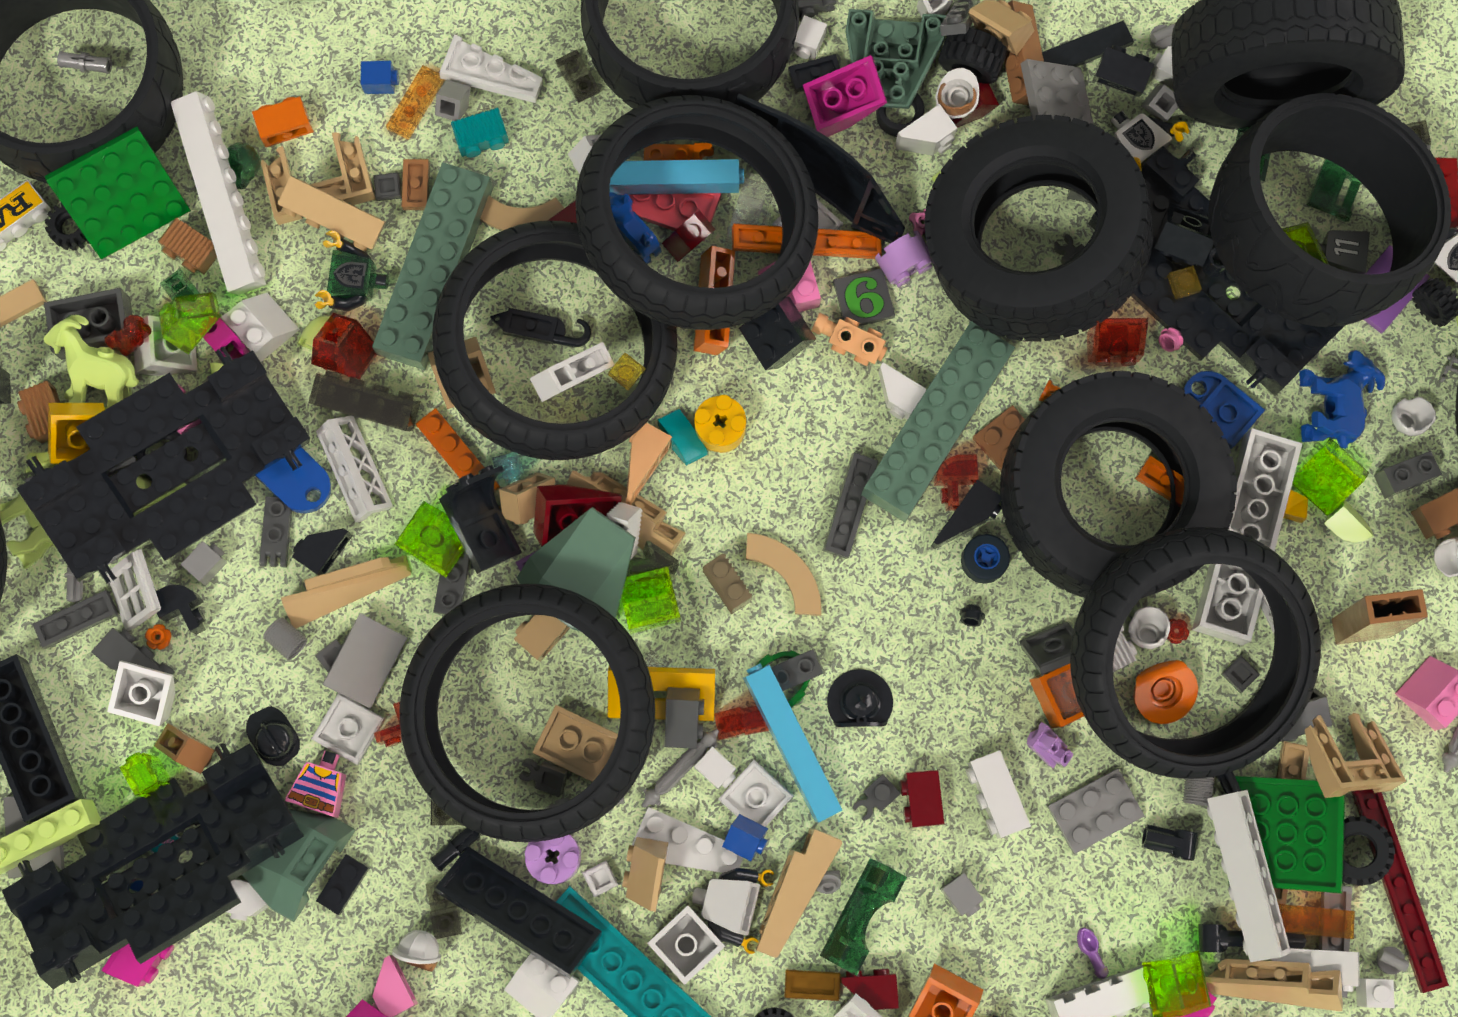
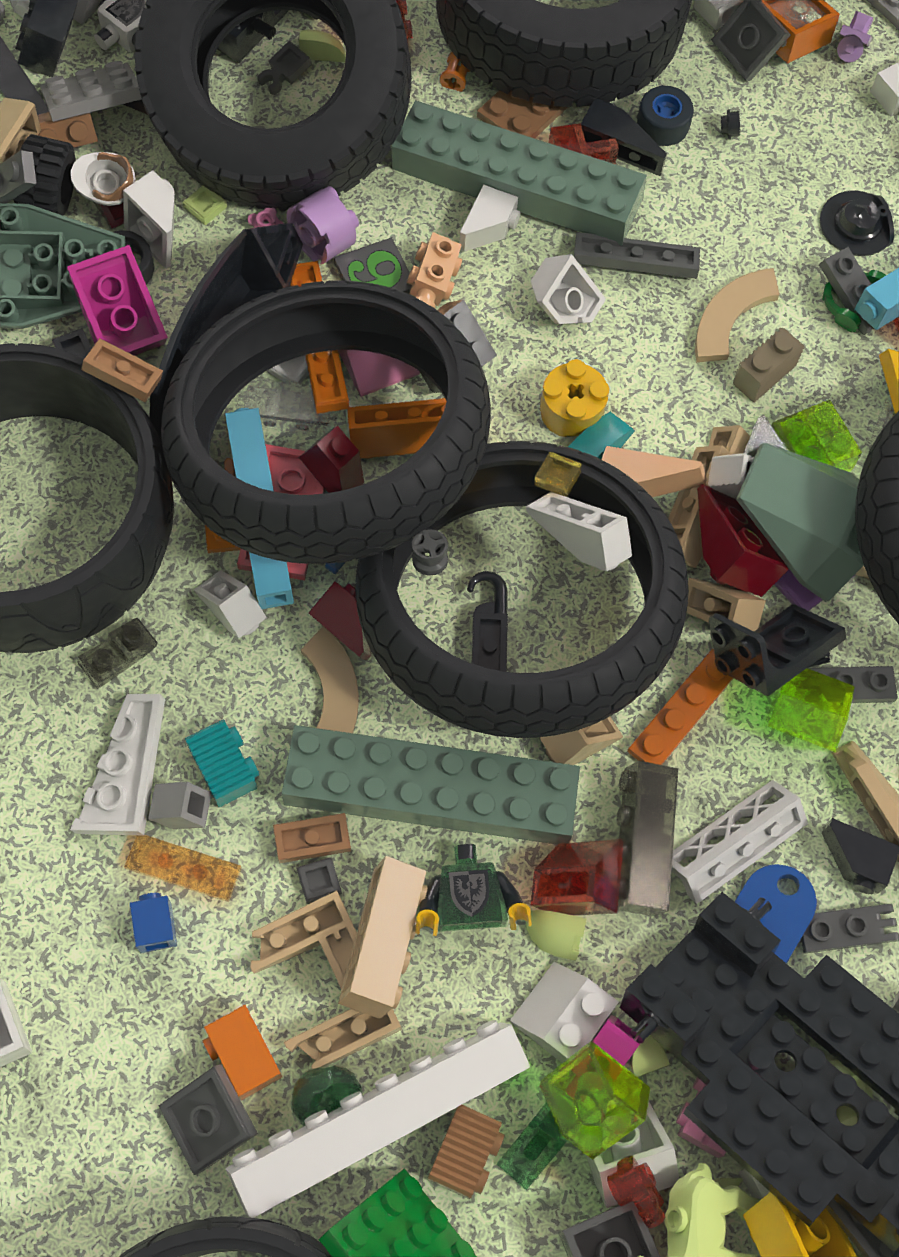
camera: 105 degrees left, 10 degrees down
(245, 94) = (207, 1119): none -> dark grey tile
(512, 467) = (696, 628): clear light blue slope -> none
(576, 259) = (436, 545): none -> dark grey wheel
(753, 71) = (122, 370): none -> medium nougat plate
(817, 436) = (566, 291): none -> white slope

